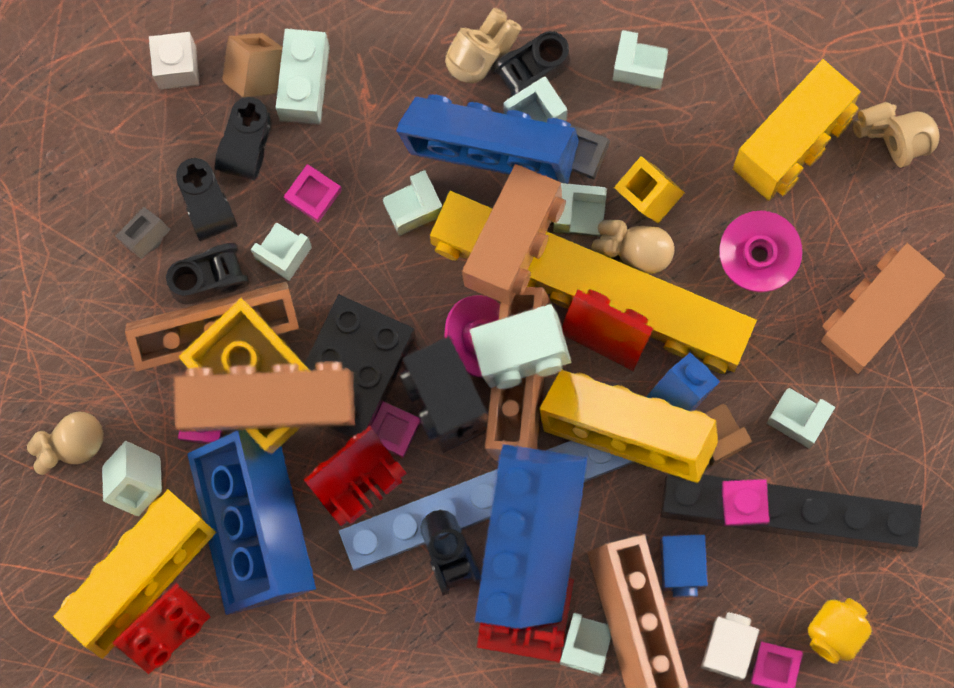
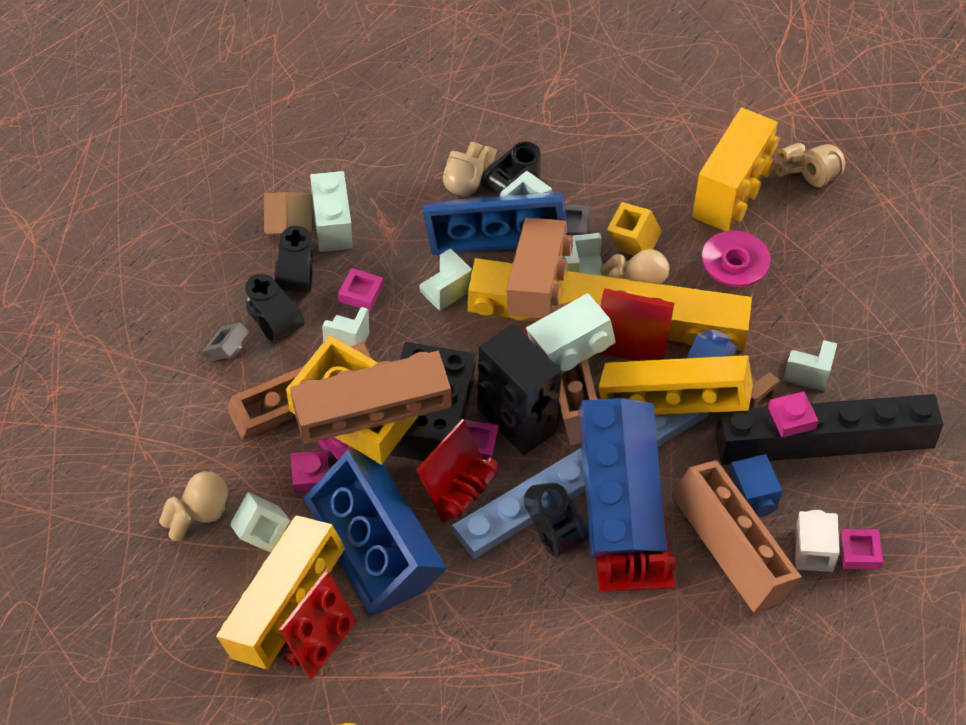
camera: 20 degrees left, 25 degrees down
(174, 60) = (223, 219): white brick -> none
(209, 274) = (283, 356): black piece -> none
(586, 645) = (694, 569): light aqua panel -> none
(639, 62) = (595, 162): light aqua panel -> none
(839, 630) = (902, 507): yellow head -> none
(880, 306) = (844, 278): nougat brick -> none

